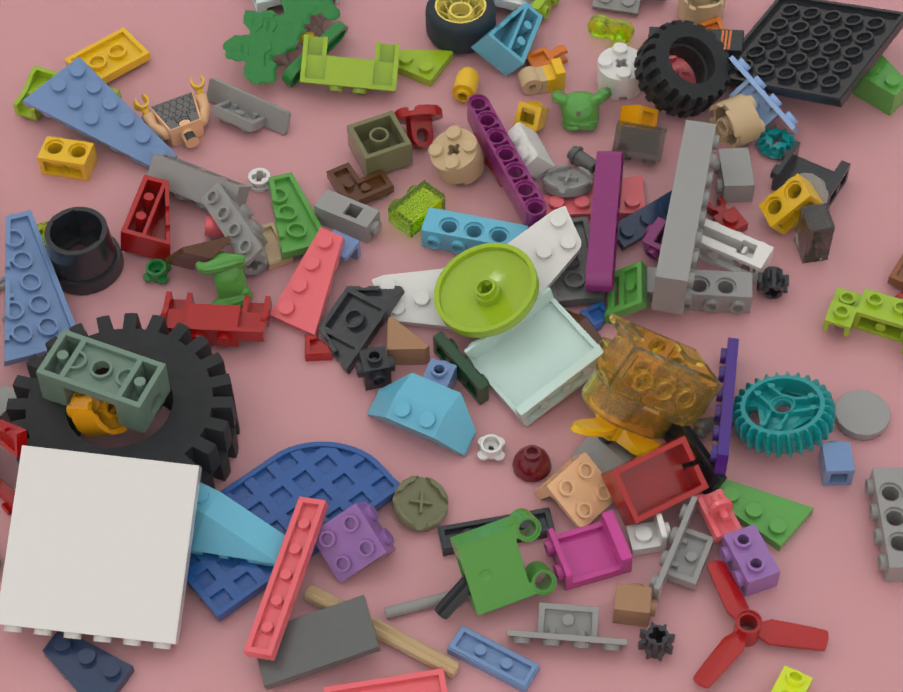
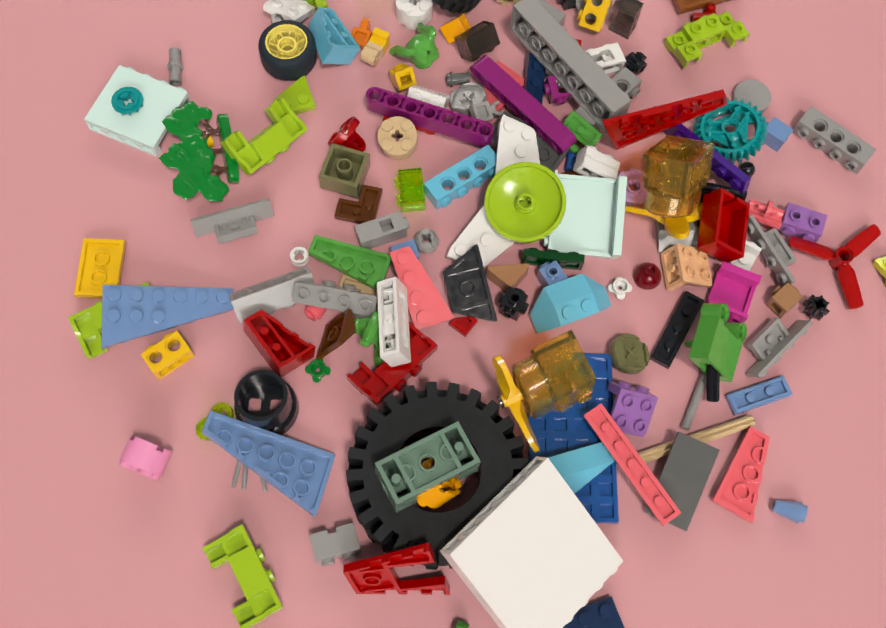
camera: 55 degrees left, 15 degrees up
(180, 118) = (203, 263): torso -> none
(249, 277) = (393, 322): none -> white brick
(293, 424) = (545, 382): none -> clear yellow brick
(373, 256) = (425, 234): none -> light grey piece
(465, 84) = (339, 90): yellow brick -> none
(560, 195) = (485, 111): none -> light grey plate
(596, 318) = (596, 164): none -> white brick
(710, 330) = (644, 123): none -> red wing
(763, 470) = (750, 170): none -> black hinge
(773, 515) = (779, 189): bright green wing -> none

